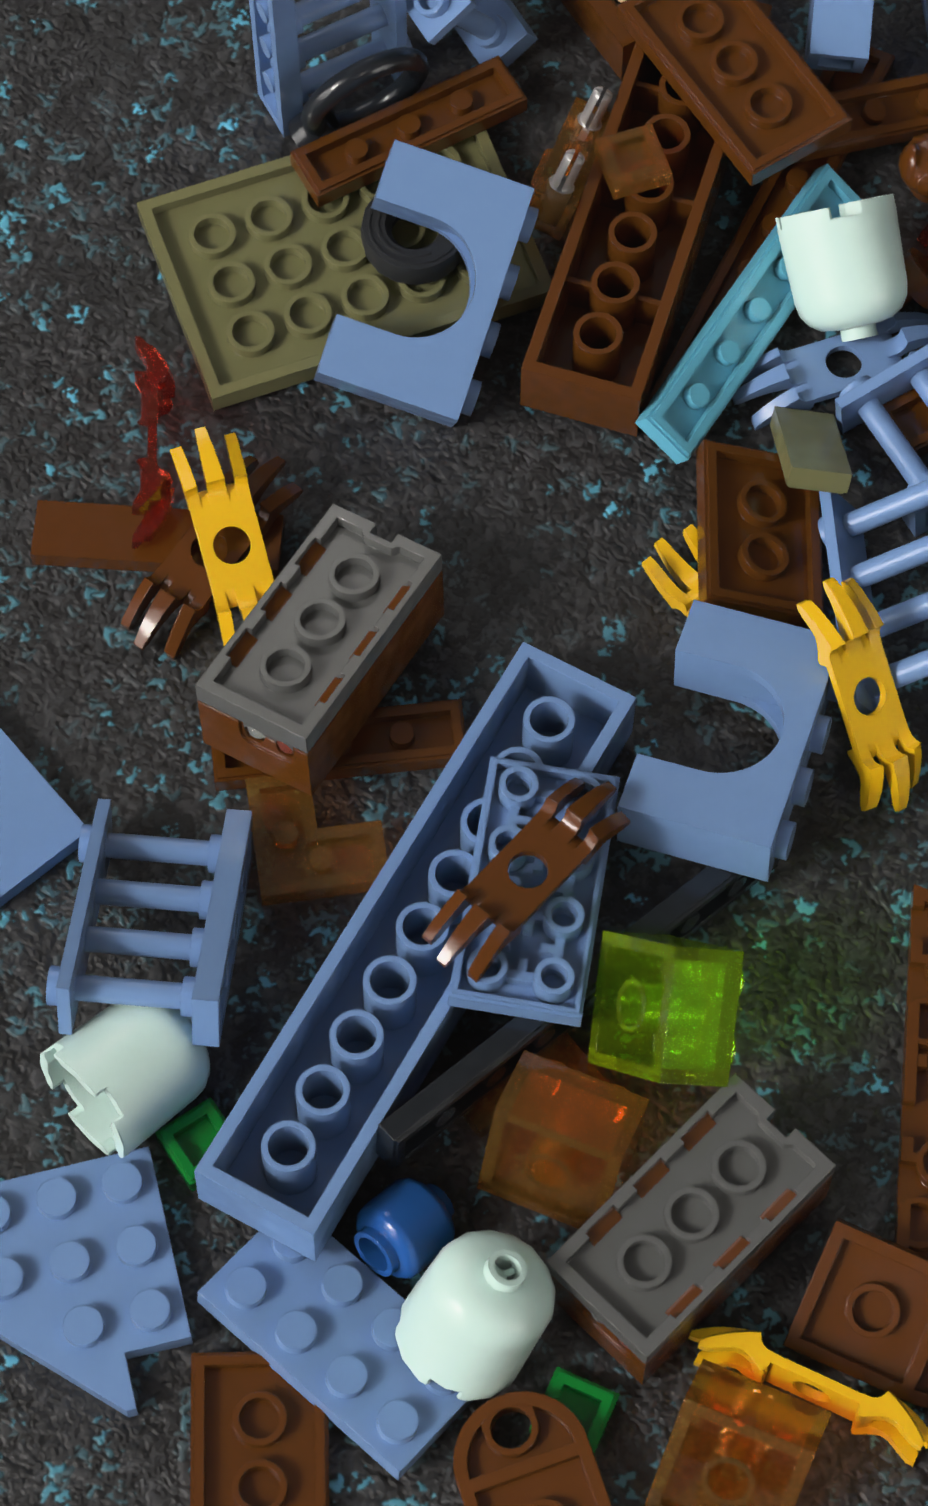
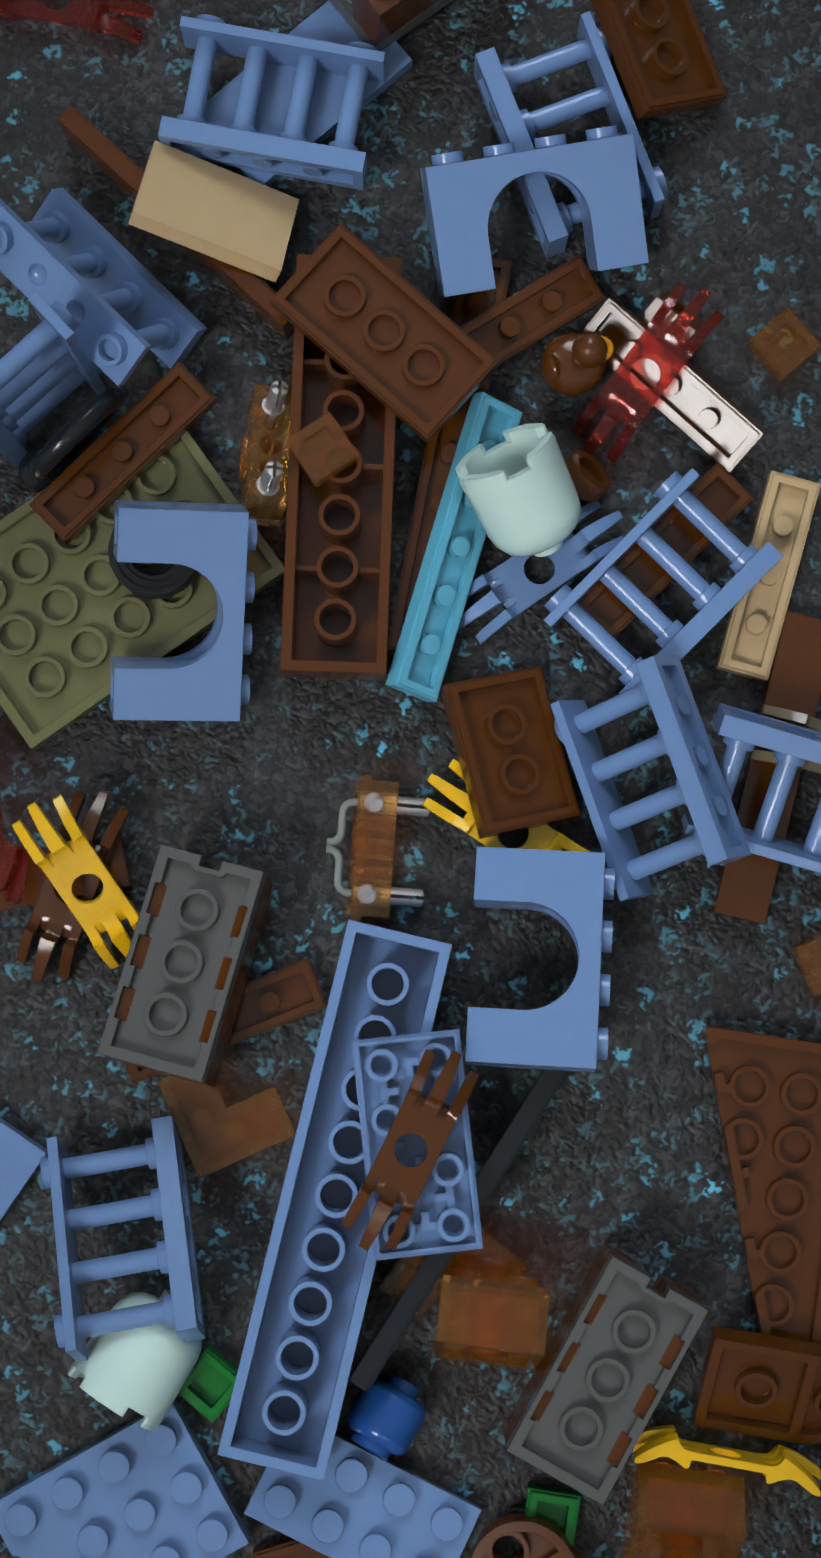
camera: 15 degrees left, 20 degrees up
(476, 1314) = (441, 1491): light aqua cylinder -> none
(573, 592) = (372, 848): none -> clear orange piece
(666, 1008) = (546, 1219): clear neon green brick -> none
(810, 450) = (534, 667): olive tile -> none
(849, 659) = (622, 869): yellow piece -> none

